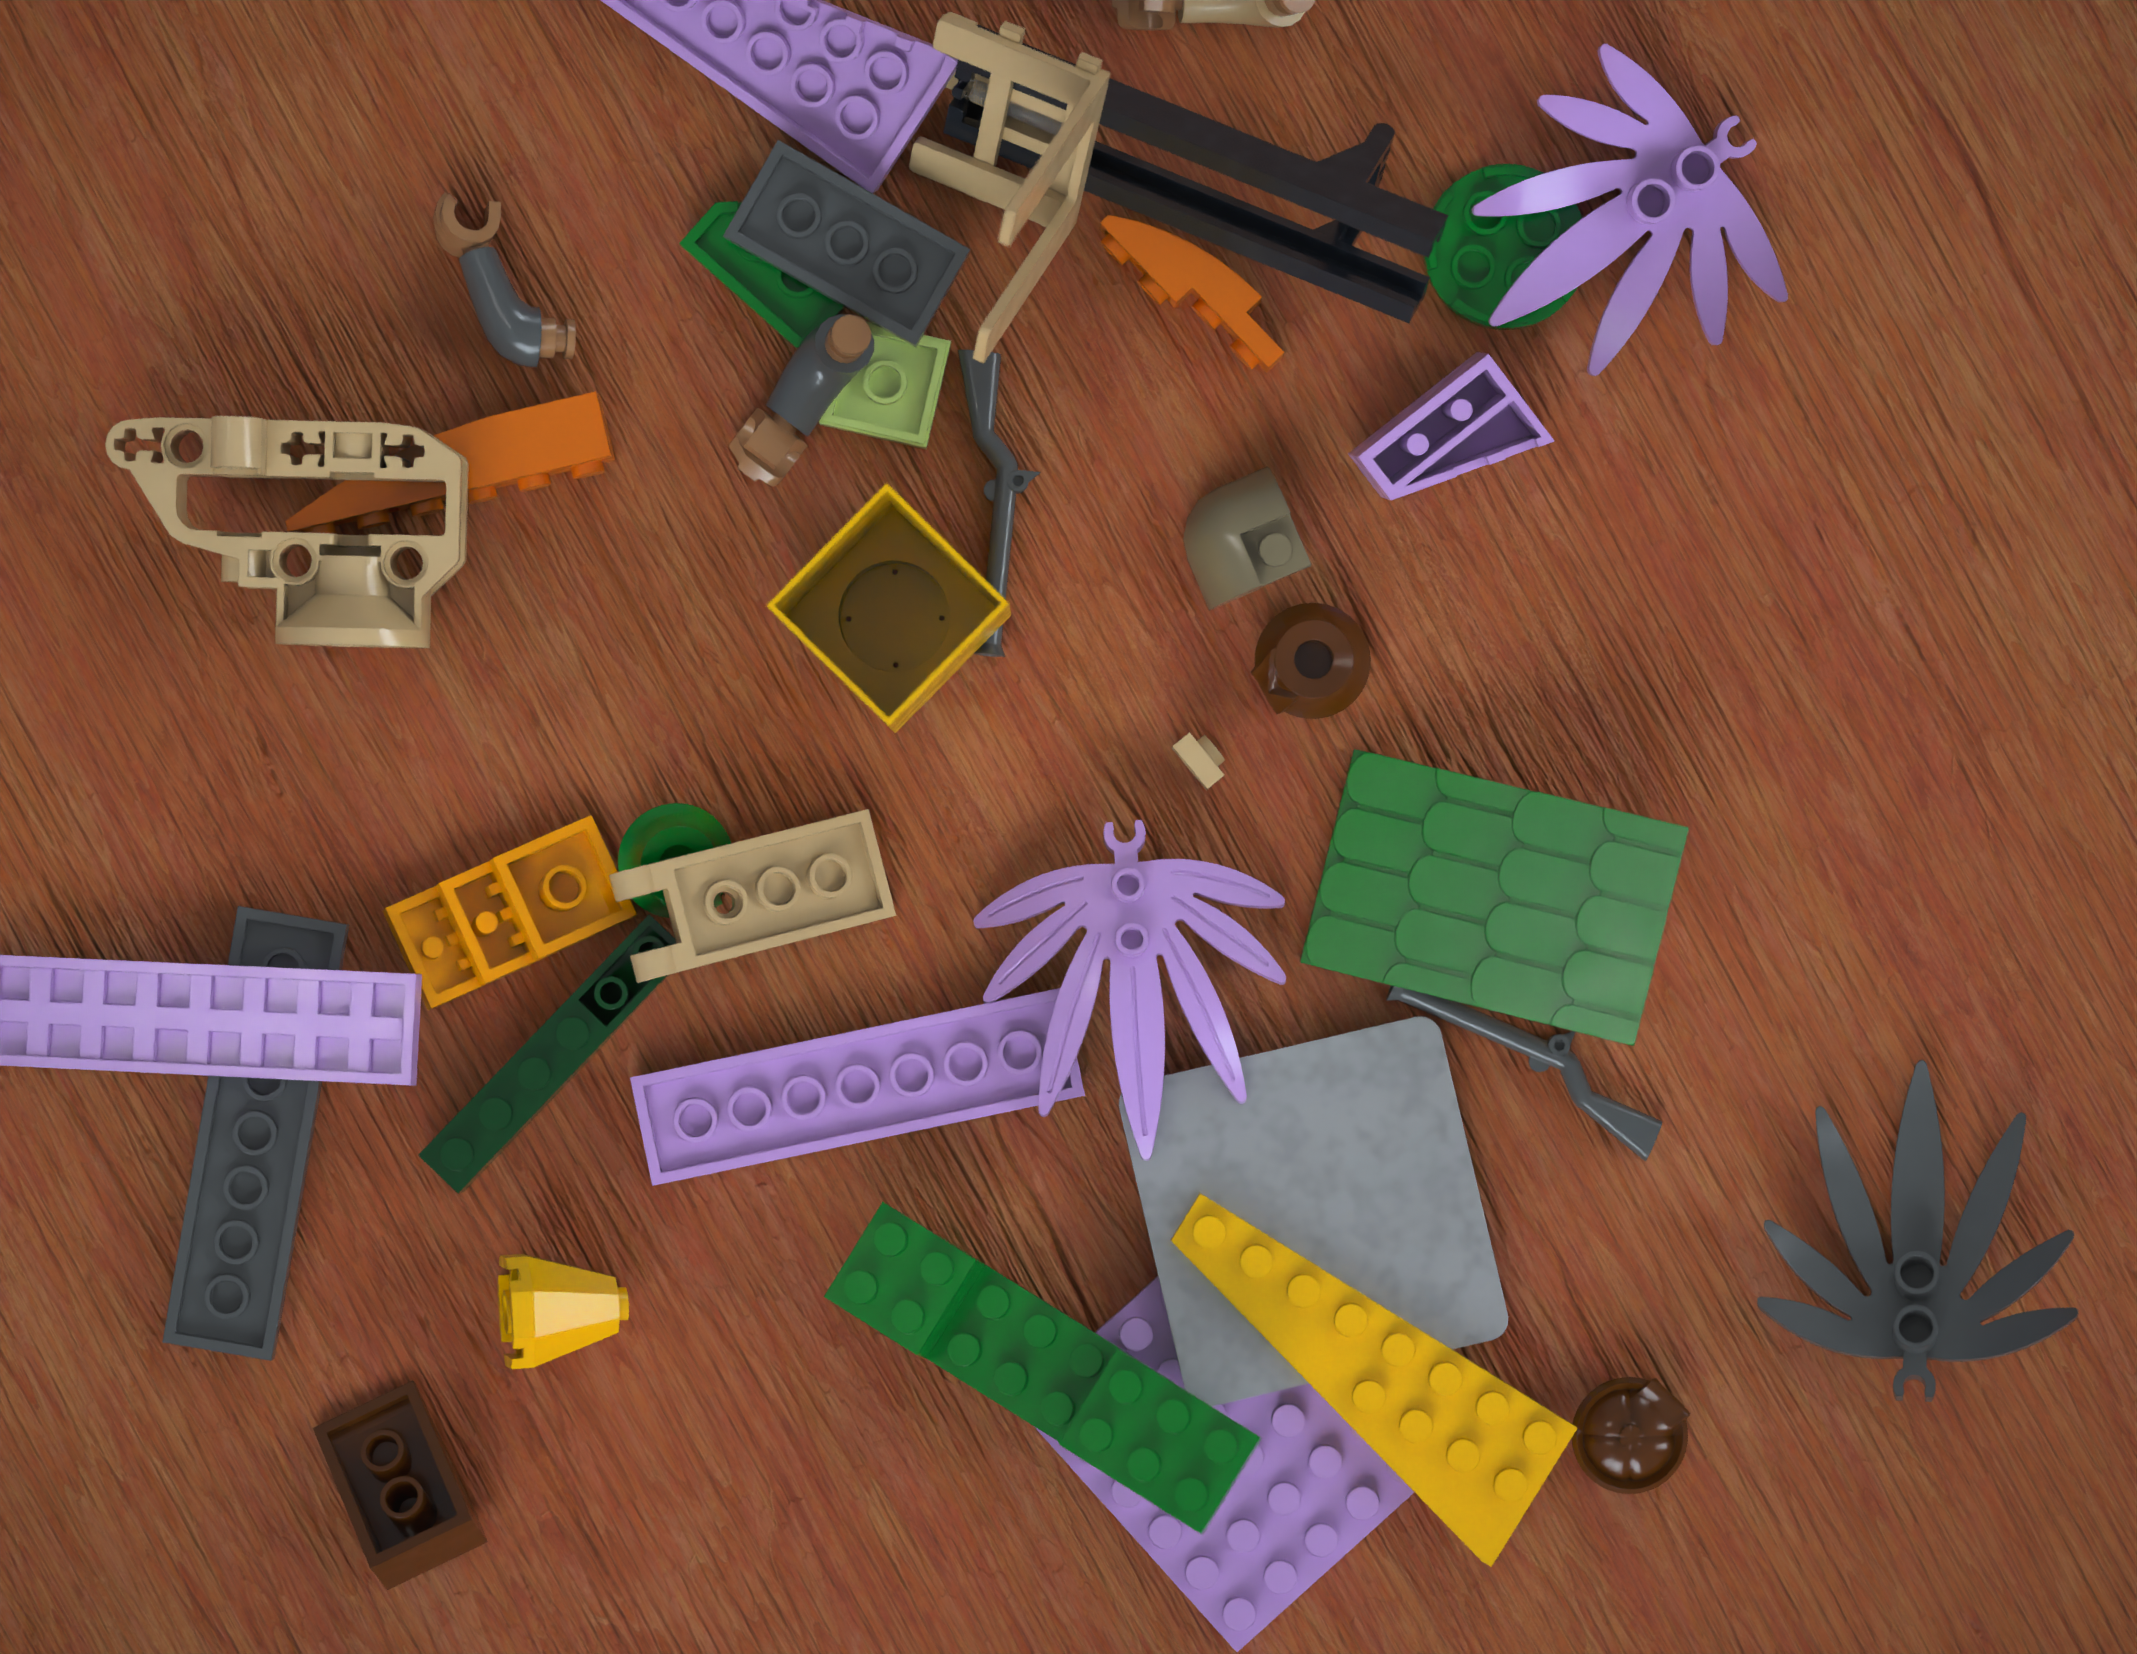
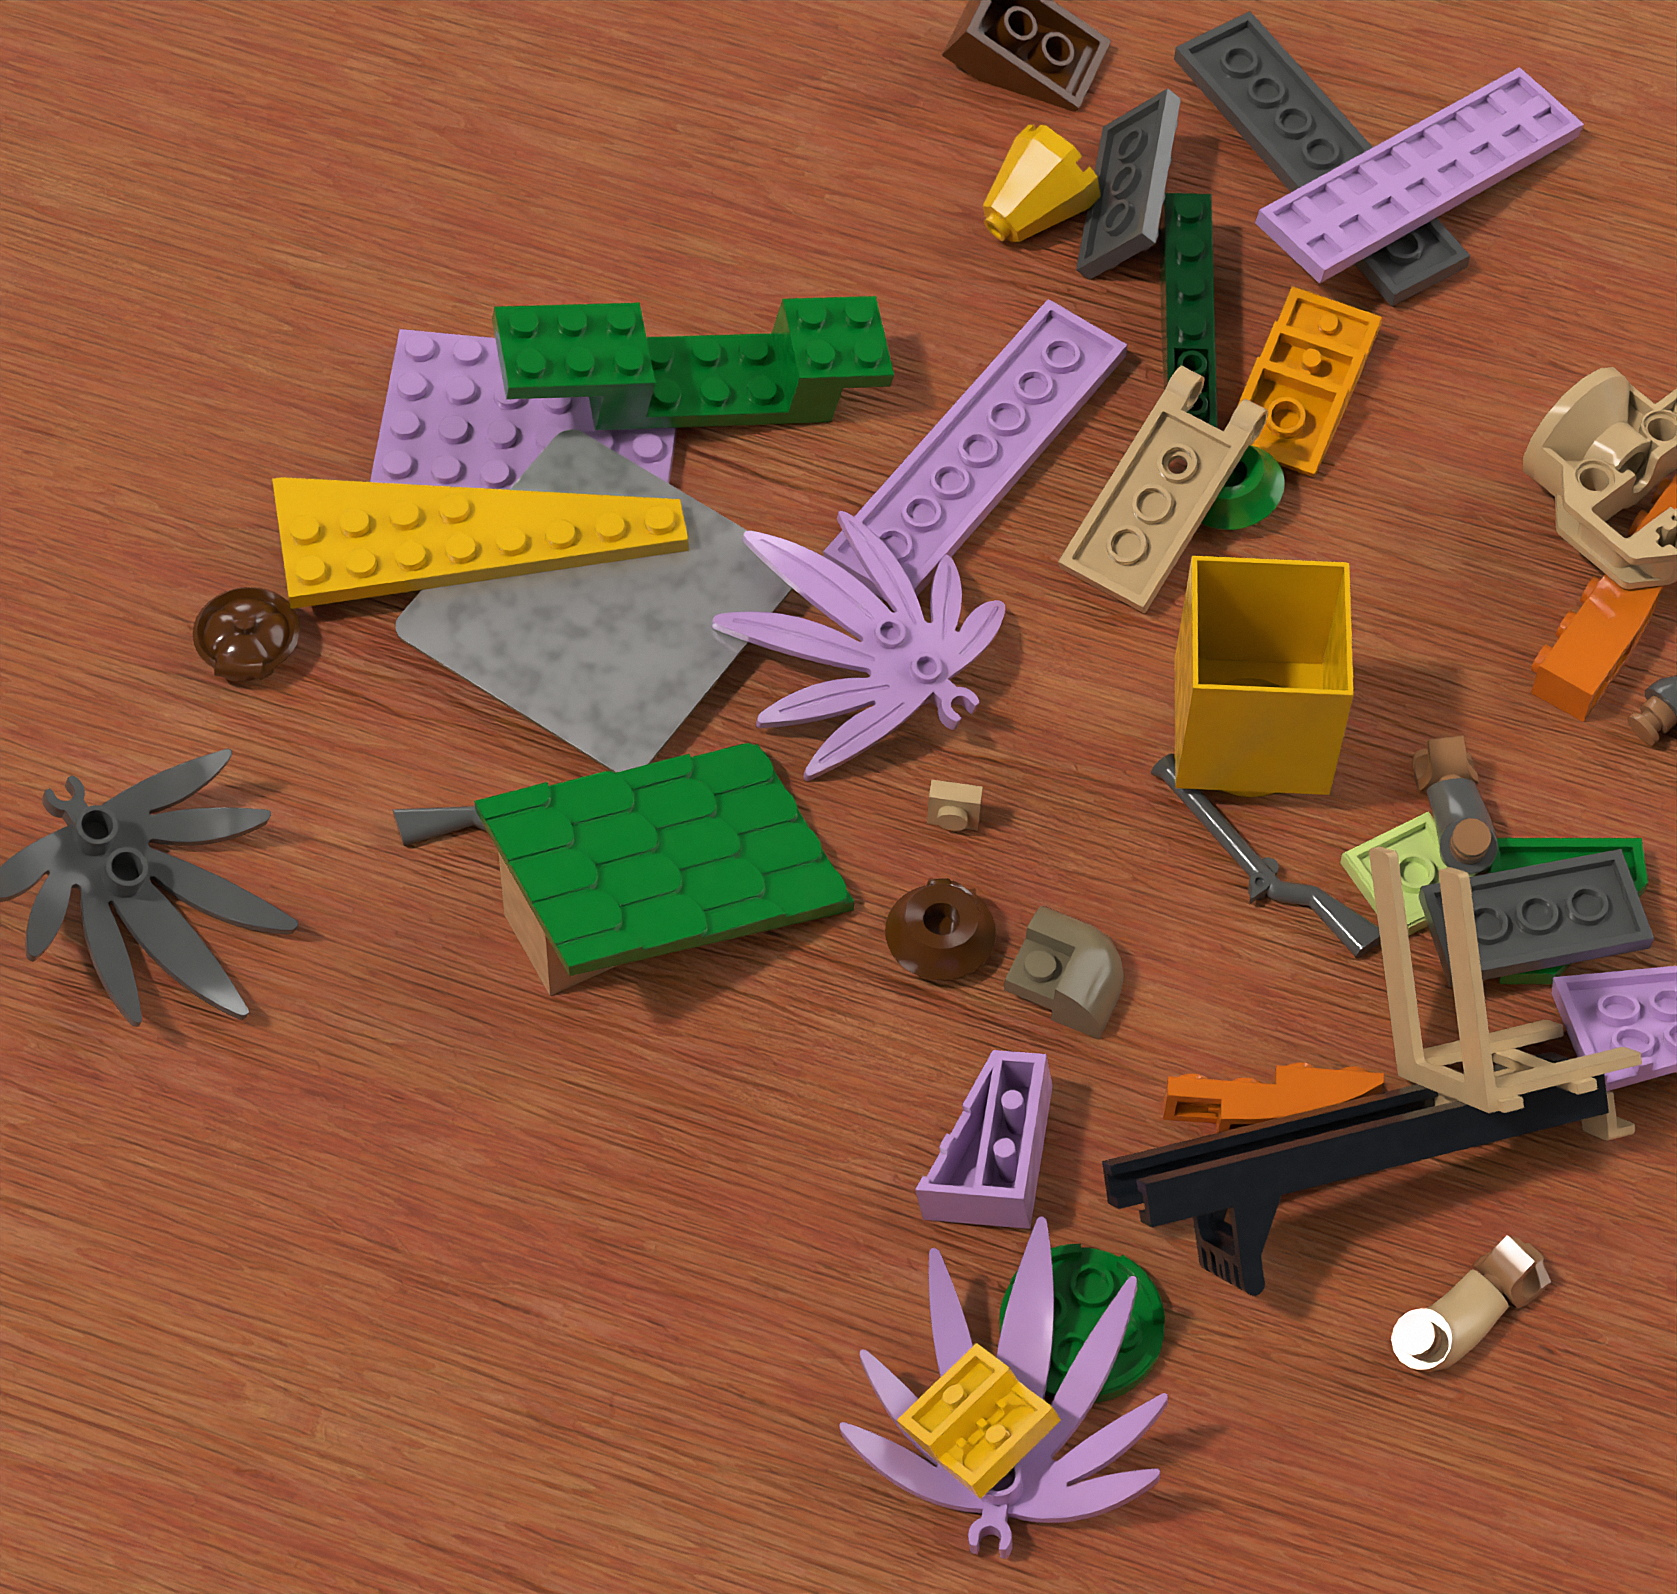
camera: 135 degrees right, 30 degrees down
(462, 1239) = (1132, 184): none -> dark grey plate
(1677, 217) = (978, 1420): none -> yellow slope

